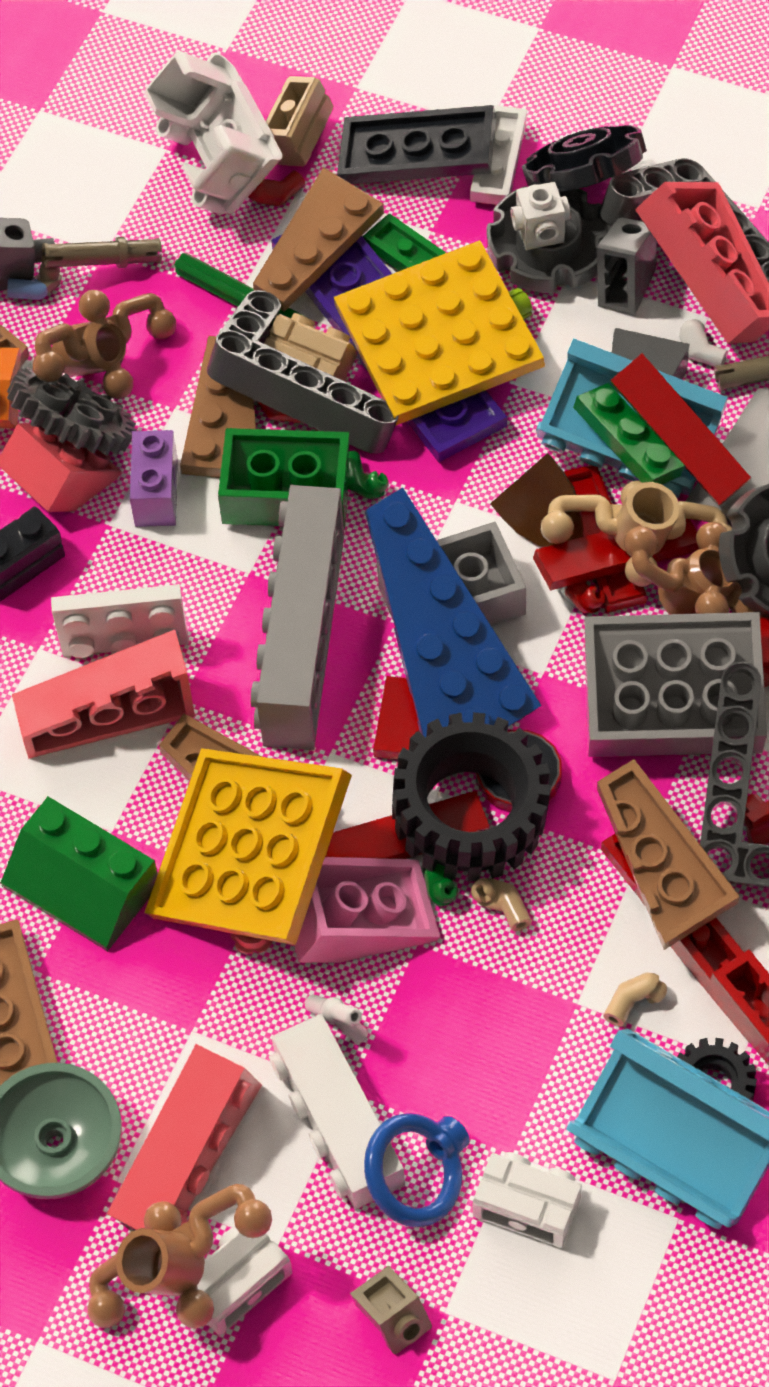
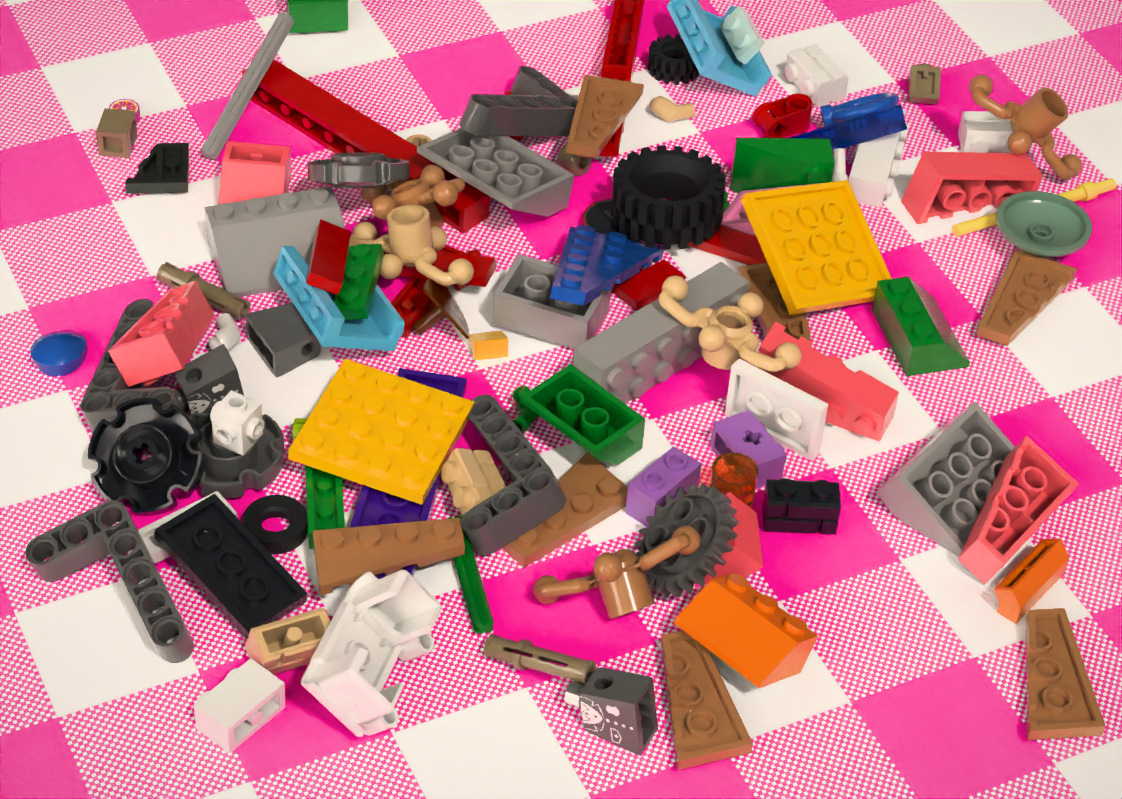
camera: 145 degrees left, 15 degrees down
(57, 1275) = (1084, 192): none -> light yellow bar
(93, 522) = (735, 474): none -> clear orange wheel
(113, 569) = (748, 436): none -> medium lavender brick
(203, 620) = (727, 330): none -> tan wheel
(284, 55) = (239, 705): none -> white brick
(385, 1085) = (860, 128): none -> clear blue tile
(392, 956) = (780, 163): none -> green slope
(440, 199) = (277, 506): none -> black tyre
(469, 513) = (489, 345): none -> yellow slope
(472, 81) = (99, 542): none -> dark grey beam
(498, 1080) = (787, 116): none -> red piece
(676, 1171) = (742, 35): none -> light aqua plate

